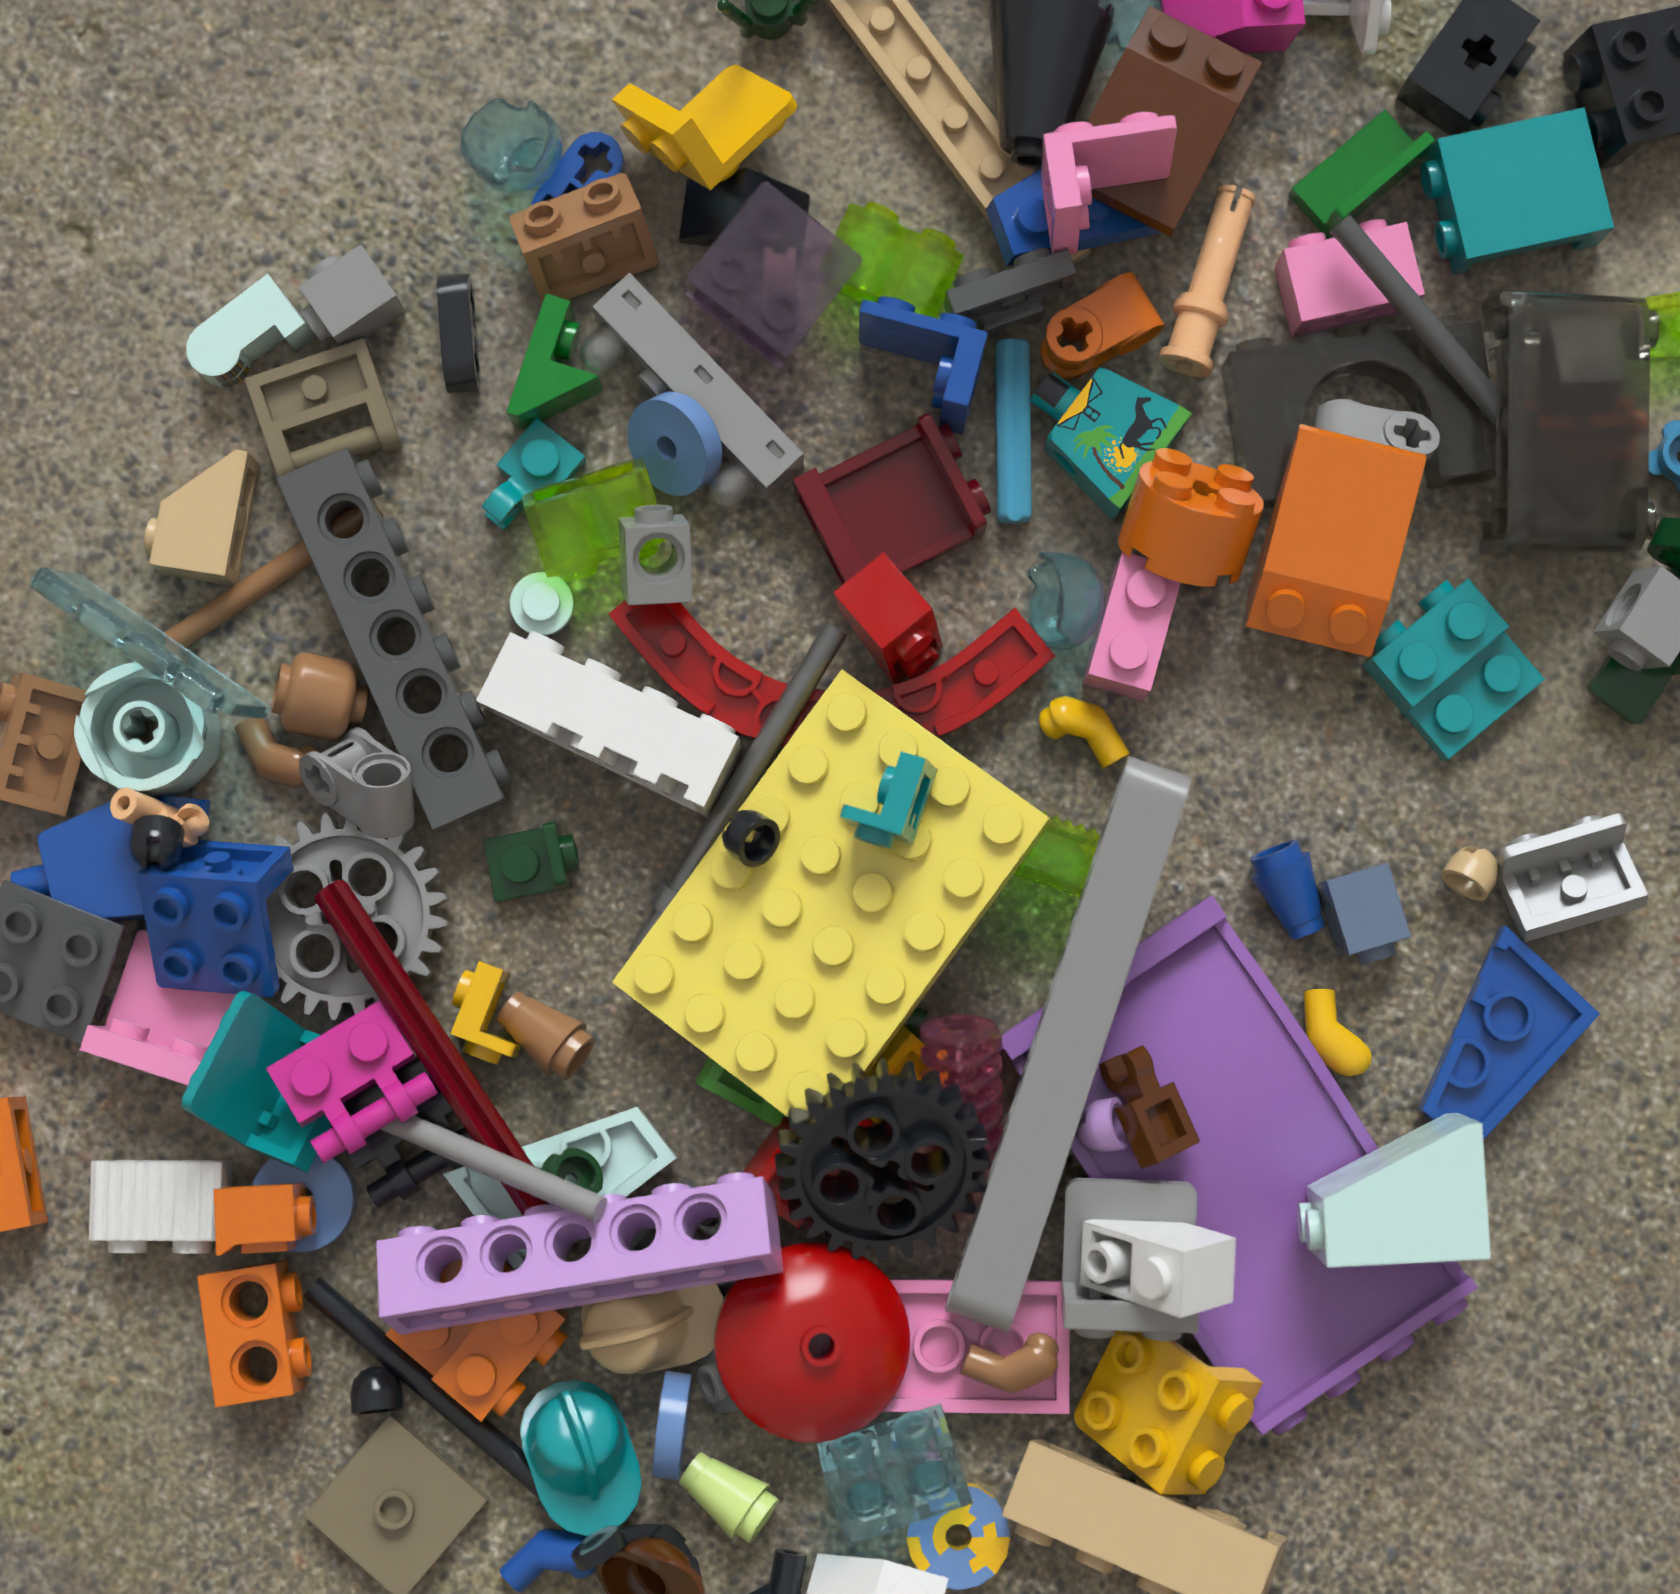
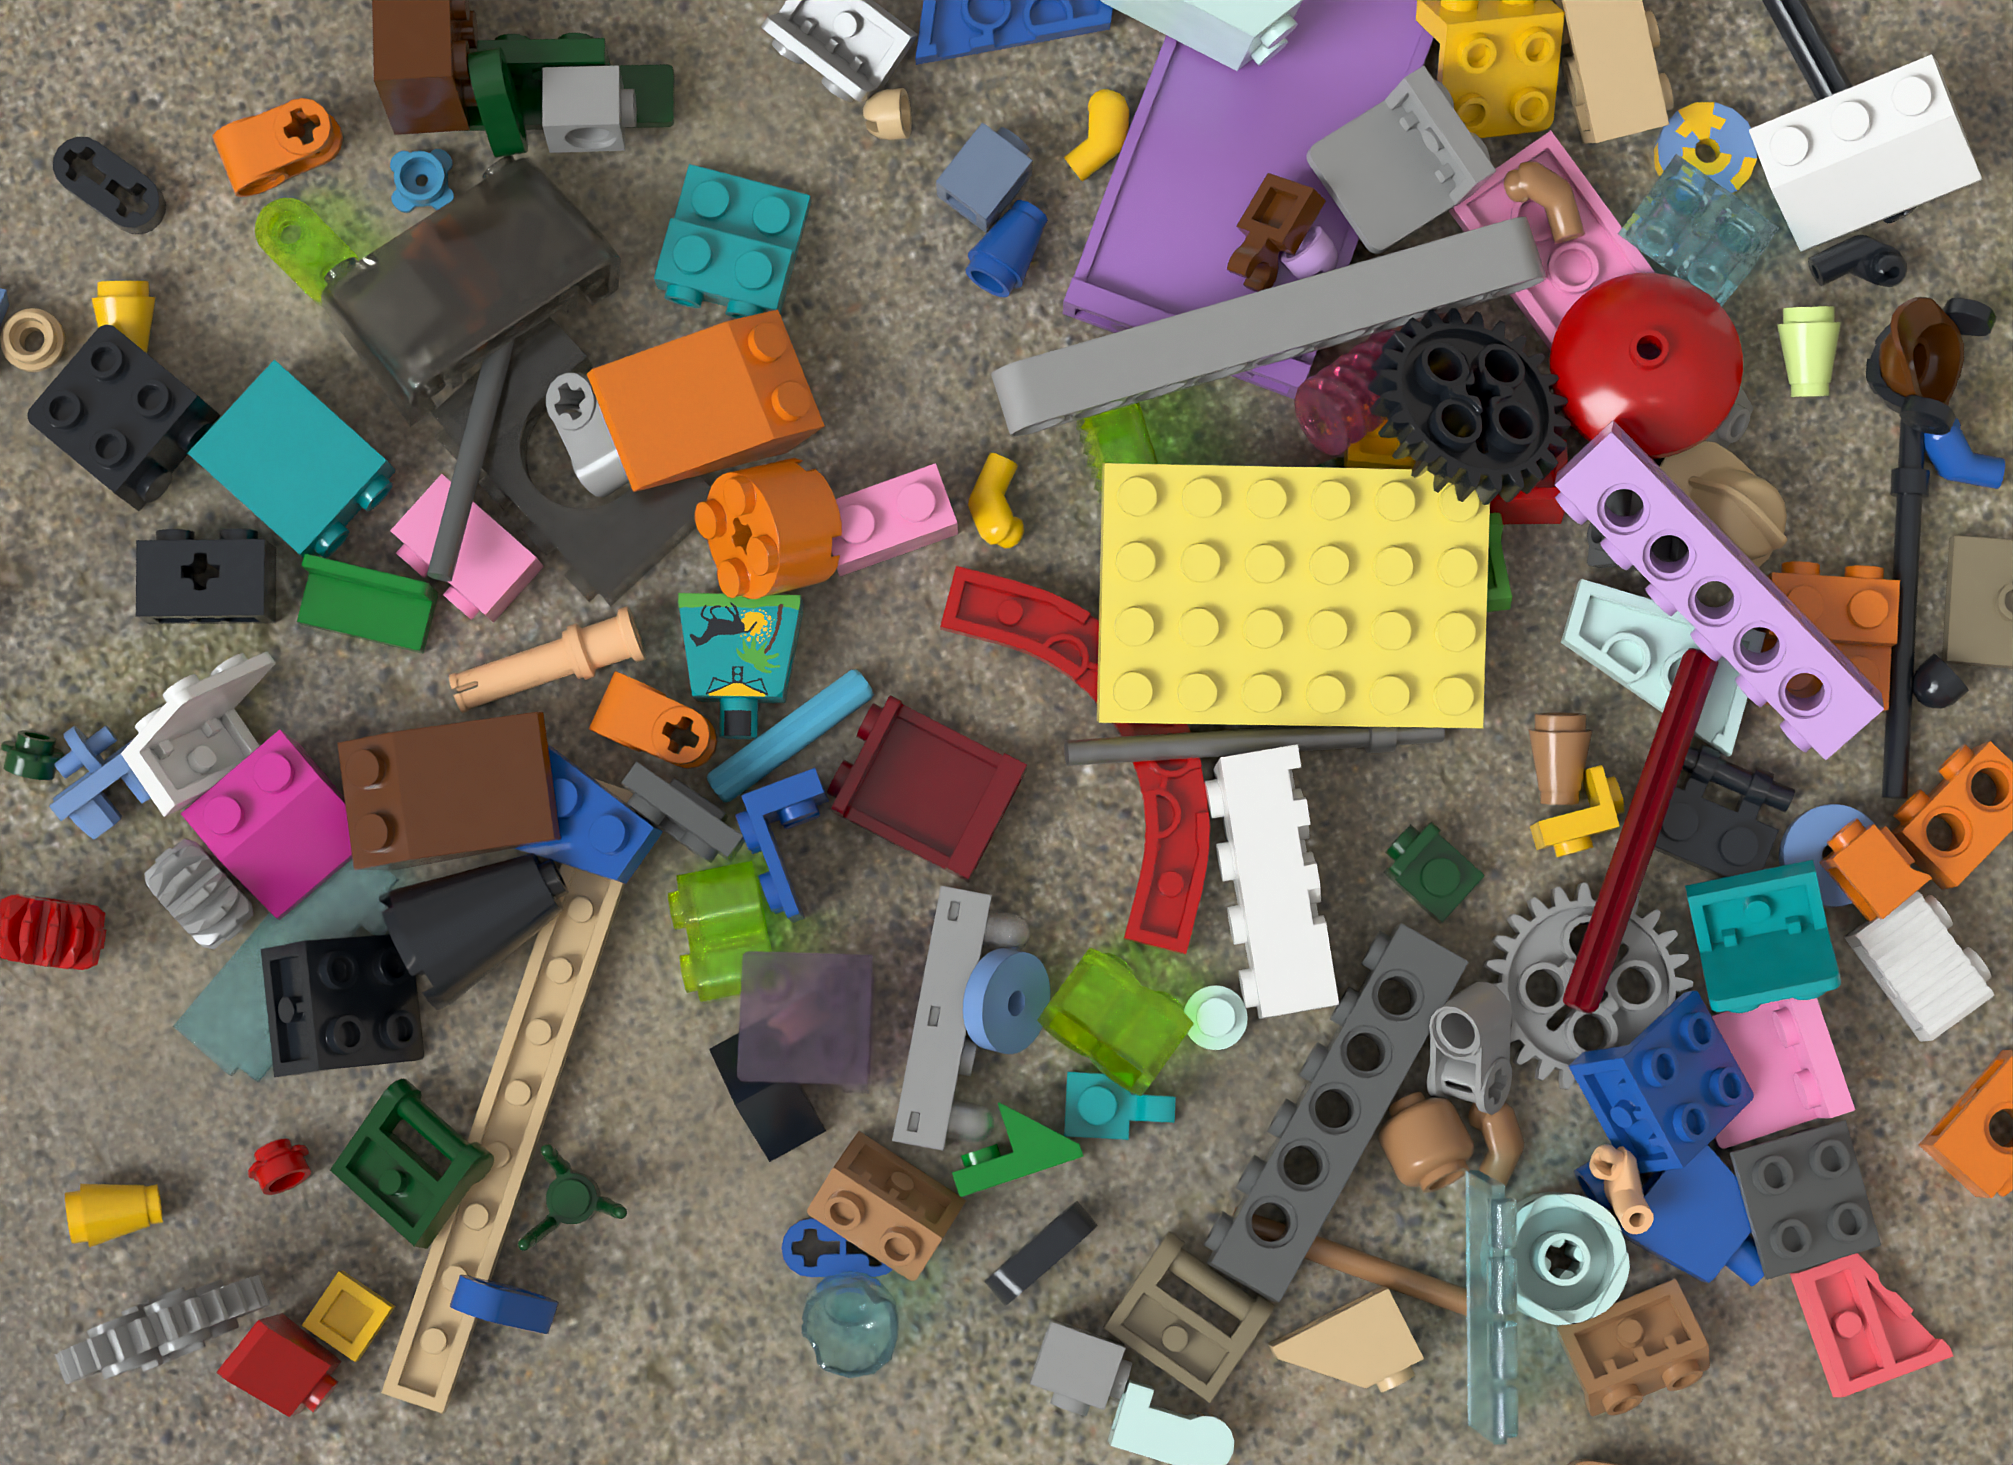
camera: 125 degrees left, 0 degrees up
(156, 829) = (1646, 1171): black hinge -> none
(342, 1065) = (1711, 892): dark pink plate -> none
(500, 1167) = (1699, 716): light grey bar -> none
(576, 1163) = (1650, 633): dark green plate -> none
(580, 1457) = (1866, 486): teal piece -> none
(663, 583) = (1133, 920): light grey brick -> none
(672, 1425) = (1790, 428): medium blue piece -> none
(710, 131) = (716, 1165): yellow bracket -> none
(762, 846) = (1292, 692): black hinge -> none
(890, 619) = (1027, 714): red slope -> none
(903, 796) = (1173, 590): teal bracket -> none
(1065, 600) = (906, 589): clear light blue hair -> none
(1099, 157) = (582, 805): bright pink bracket -> none
(1159, 1264) = (1391, 134): white slope -> none

